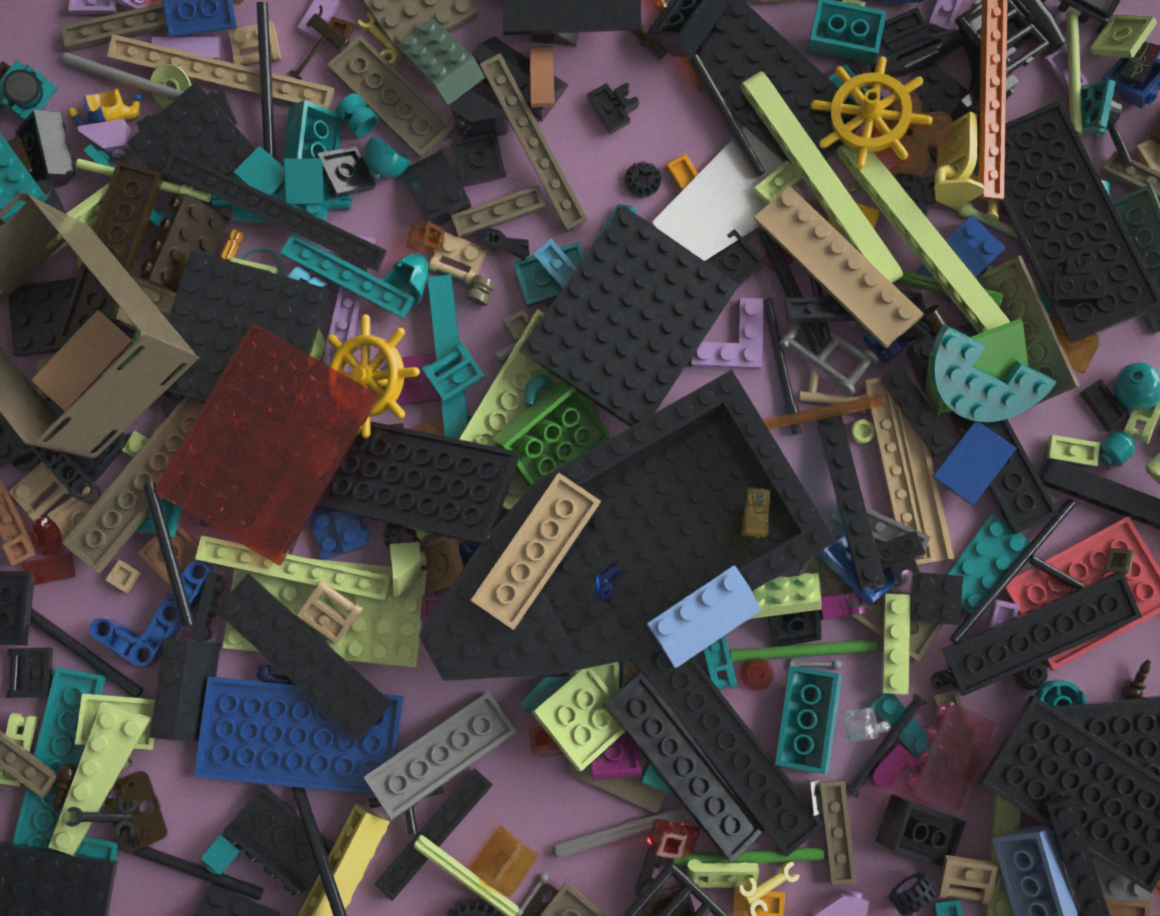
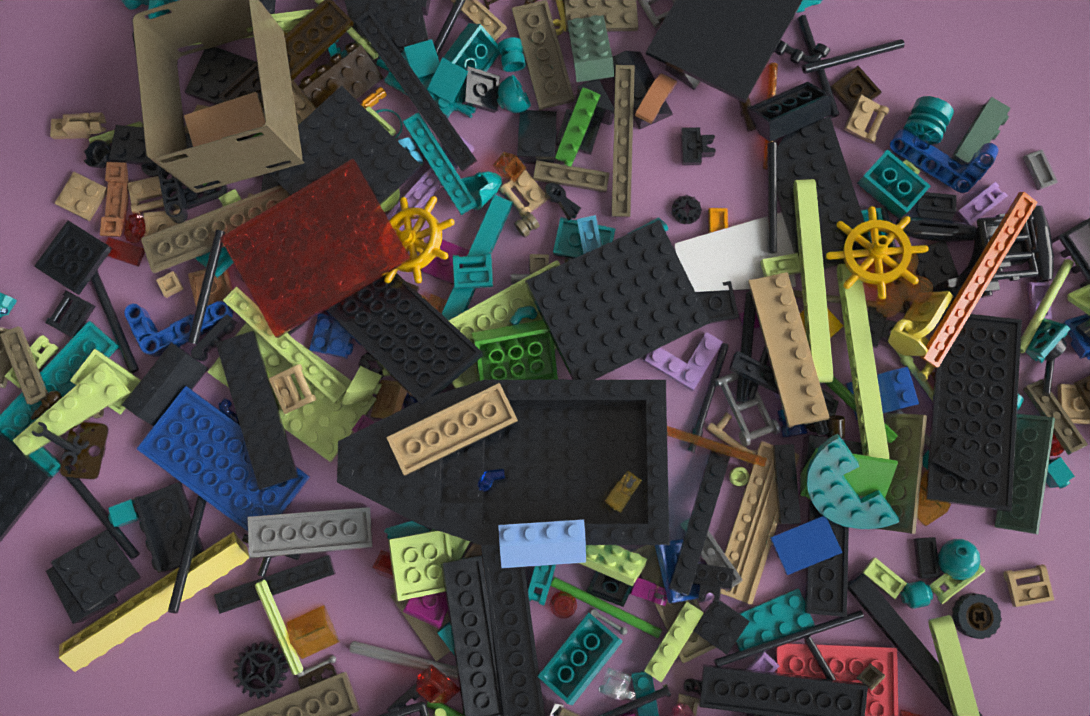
camera: 25 degrees right, 0 degrees up
(475, 153) = (577, 126): none -> bright green hinge

